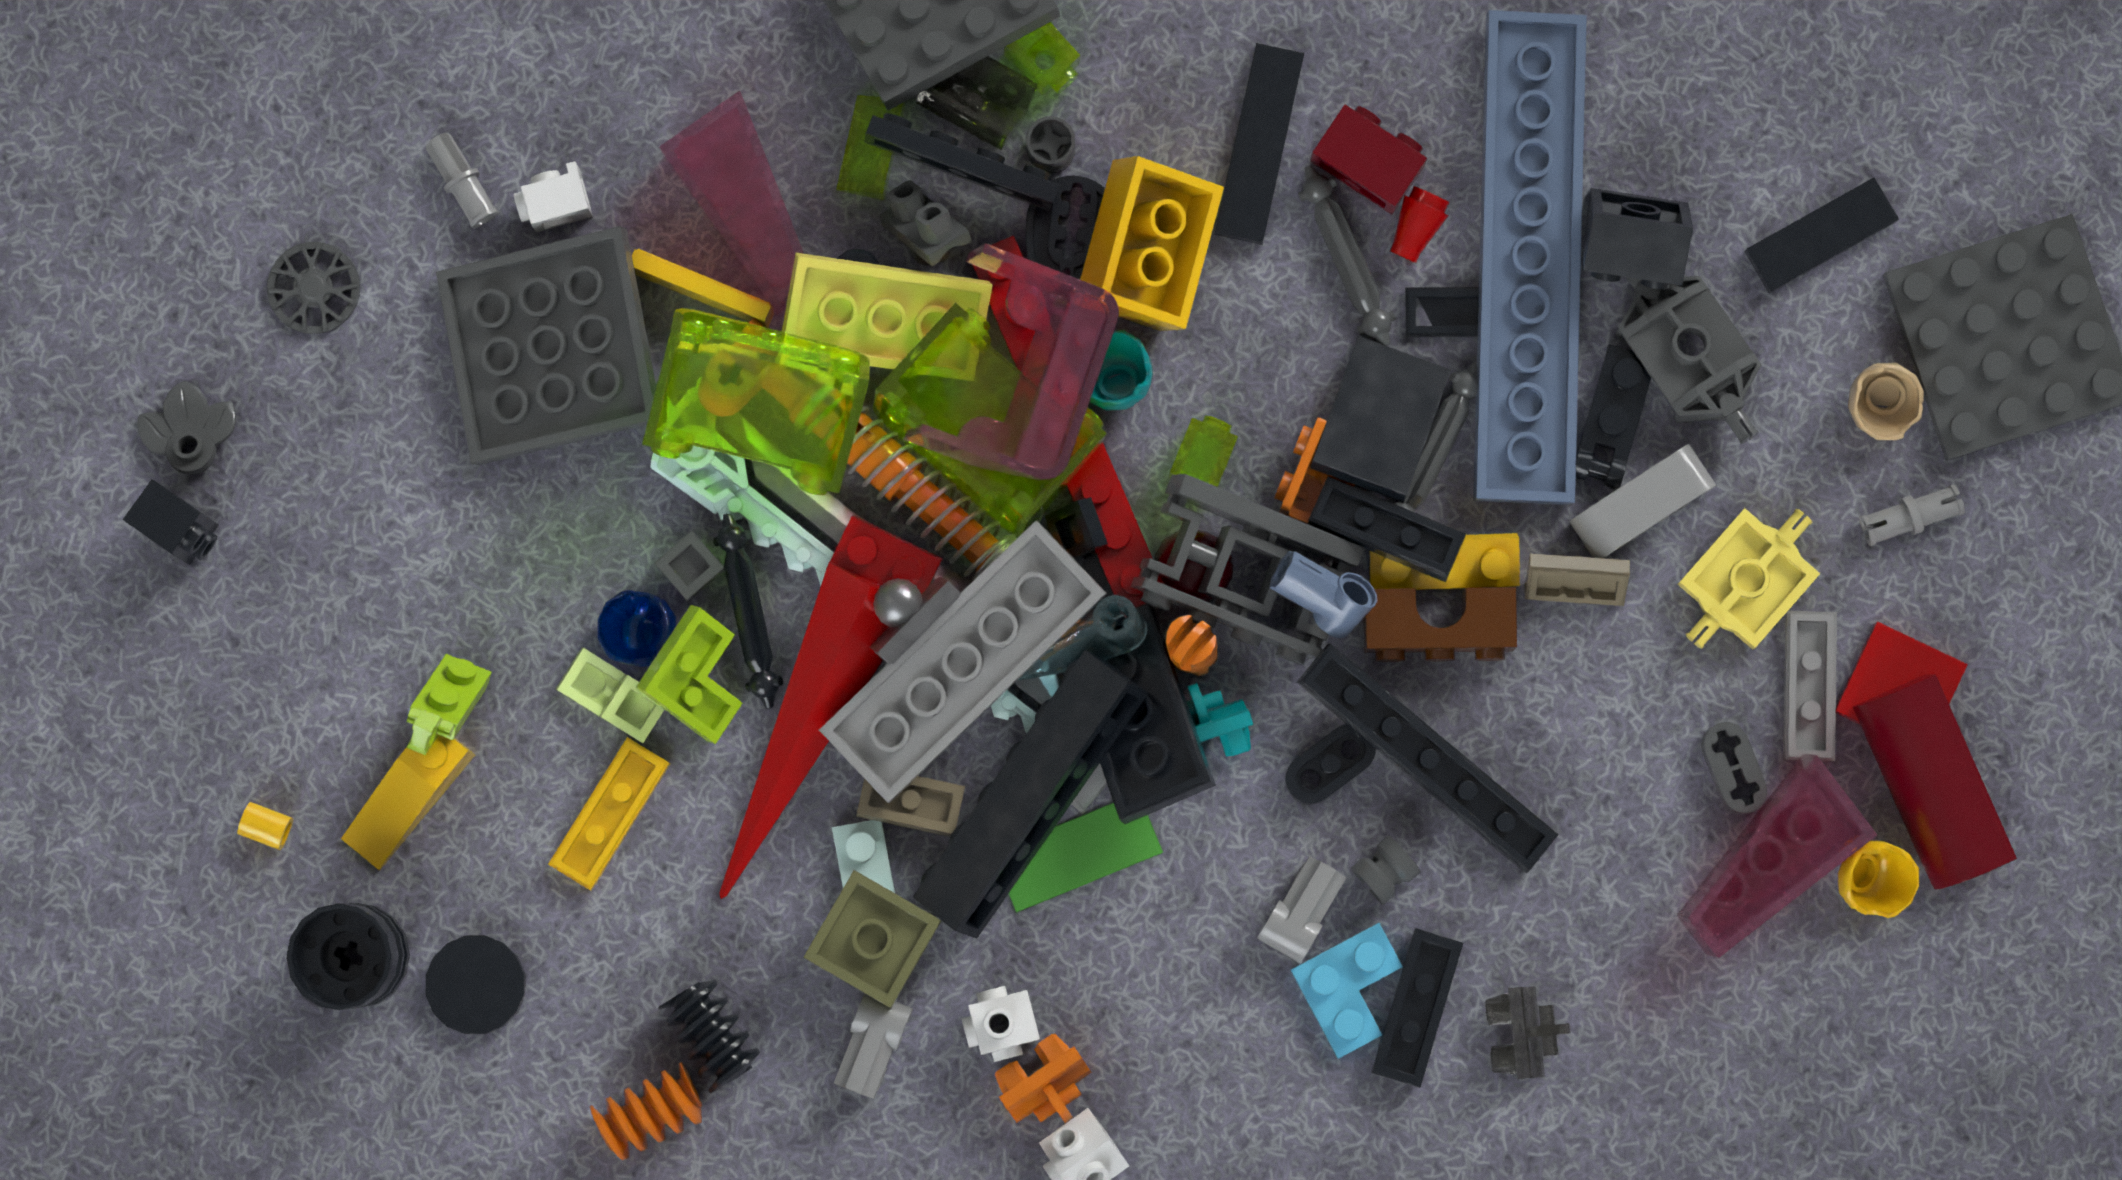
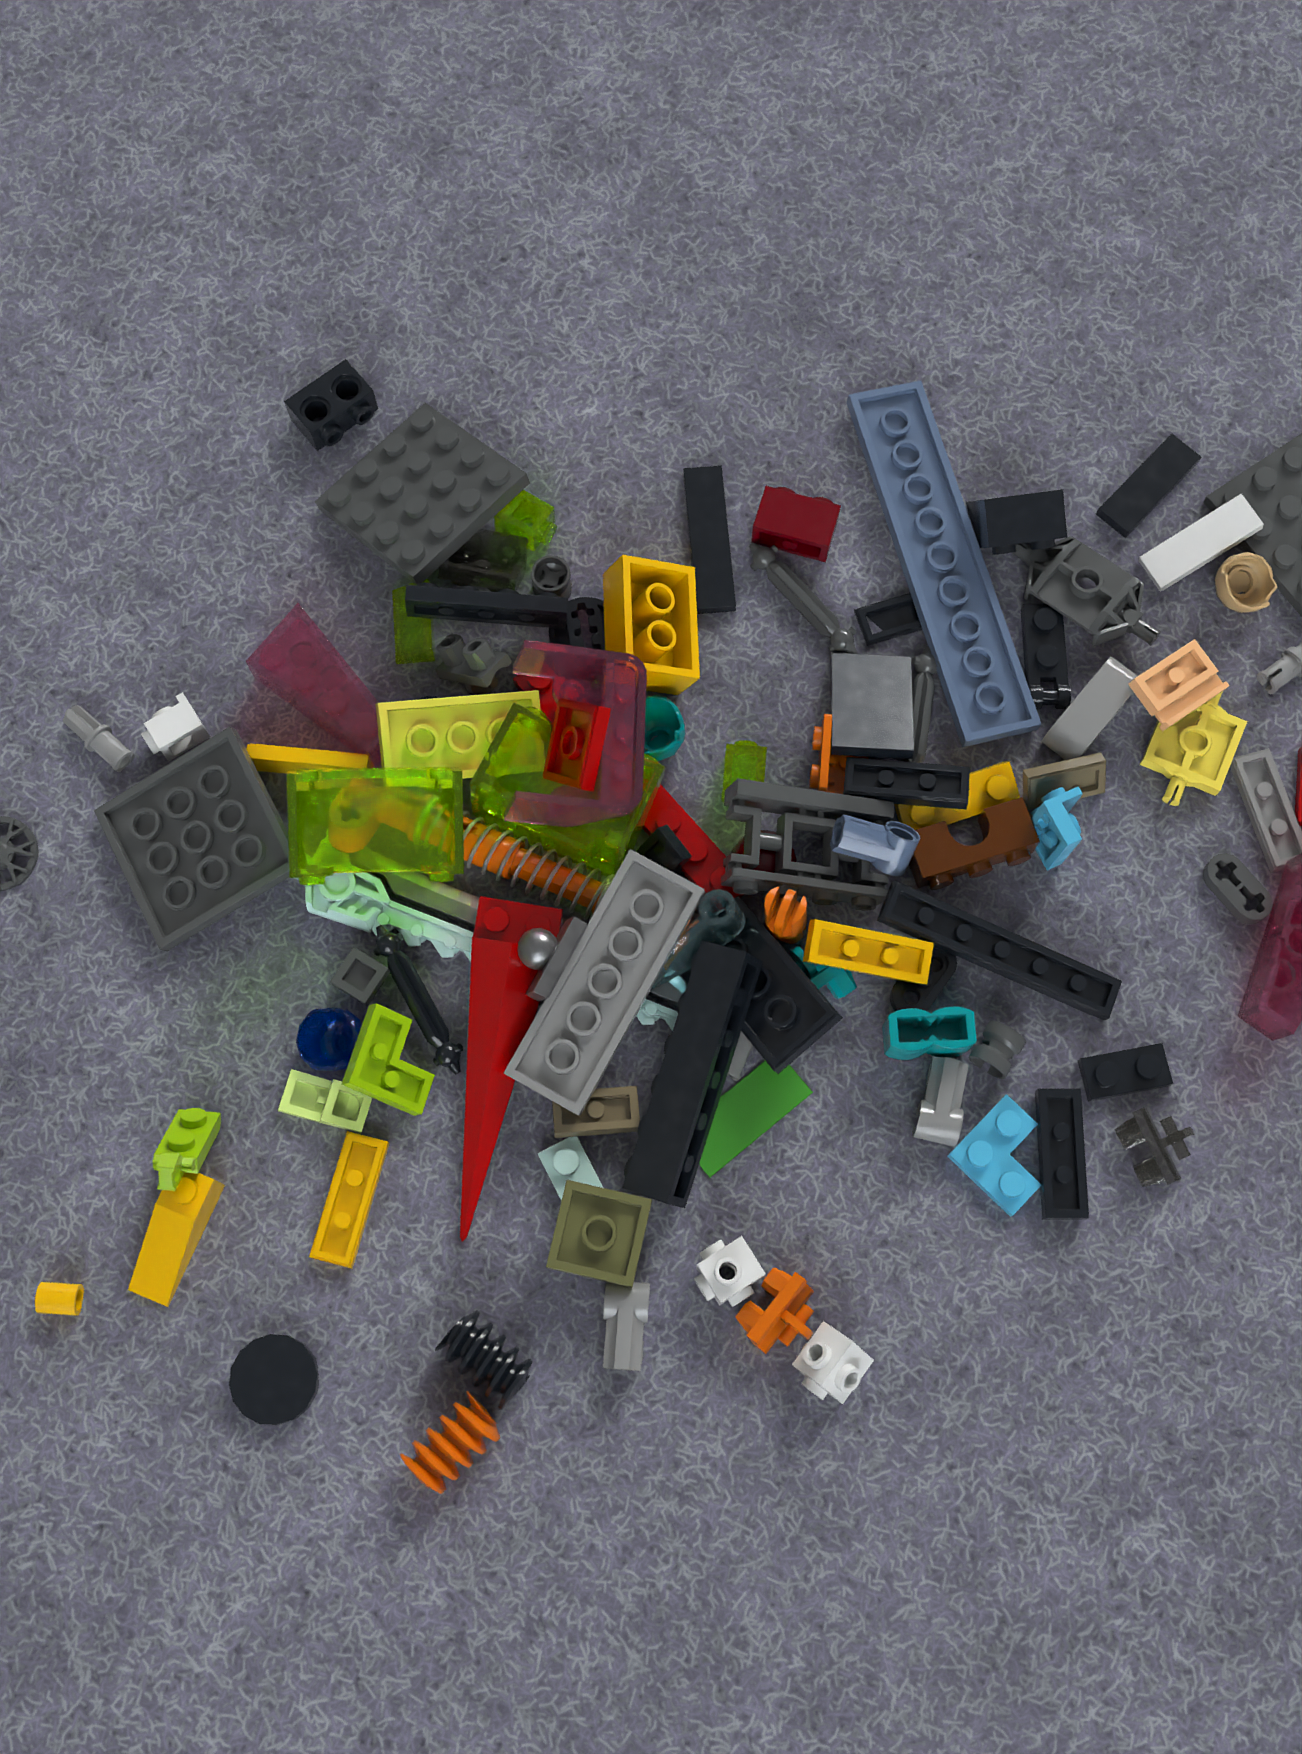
camera: 20 degrees left, 10 degrees down
(322, 969) = (129, 1394): black wheel -> none
(1012, 376) = (576, 744): none -> red tile
(1271, 718) = (868, 952): none -> yellow plate
(1326, 832) = (940, 1034): none -> teal brick
(1418, 223) = (848, 557): red cone -> none
(1524, 939) = (1125, 1072): none -> black plate
(1535, 639) = (1056, 827): none -> medium azure bracket
(1750, 507) = (1178, 684): none -> light nougat plate
(1852, 332) = (1201, 542): none -> white tile

